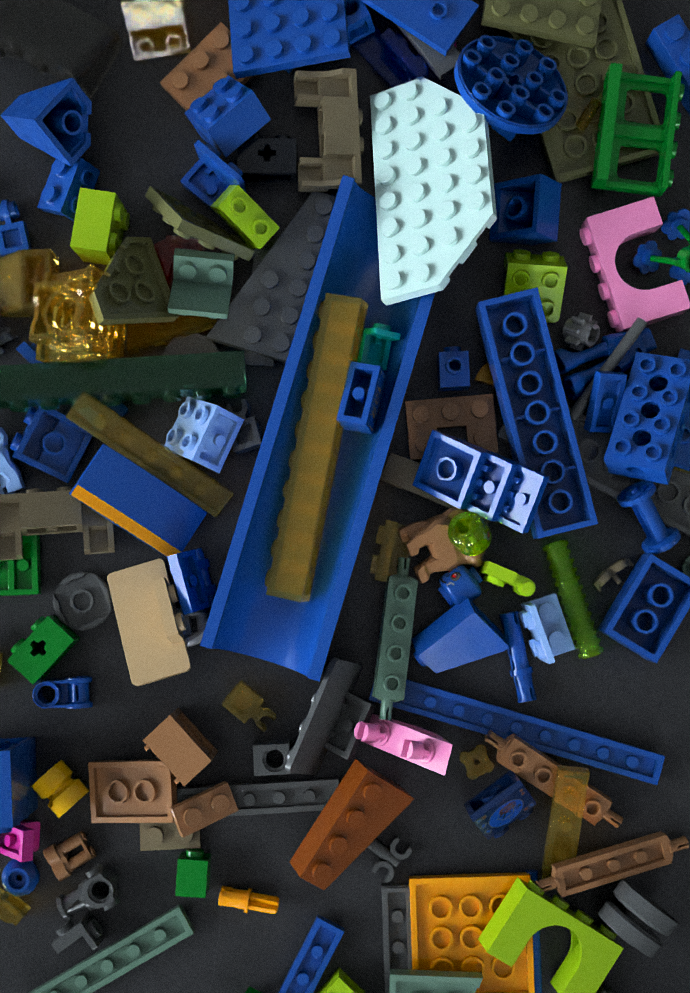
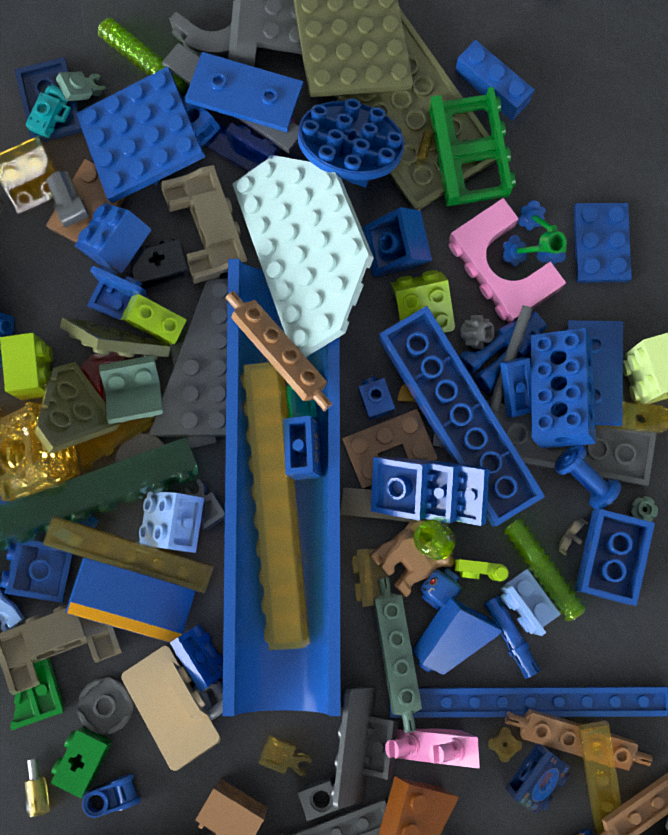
camera: 15 degrees left, 5 degrees down
(191, 66) = (69, 205): none -> dark grey piece
(368, 287) = (279, 350): none -> medium nougat plate

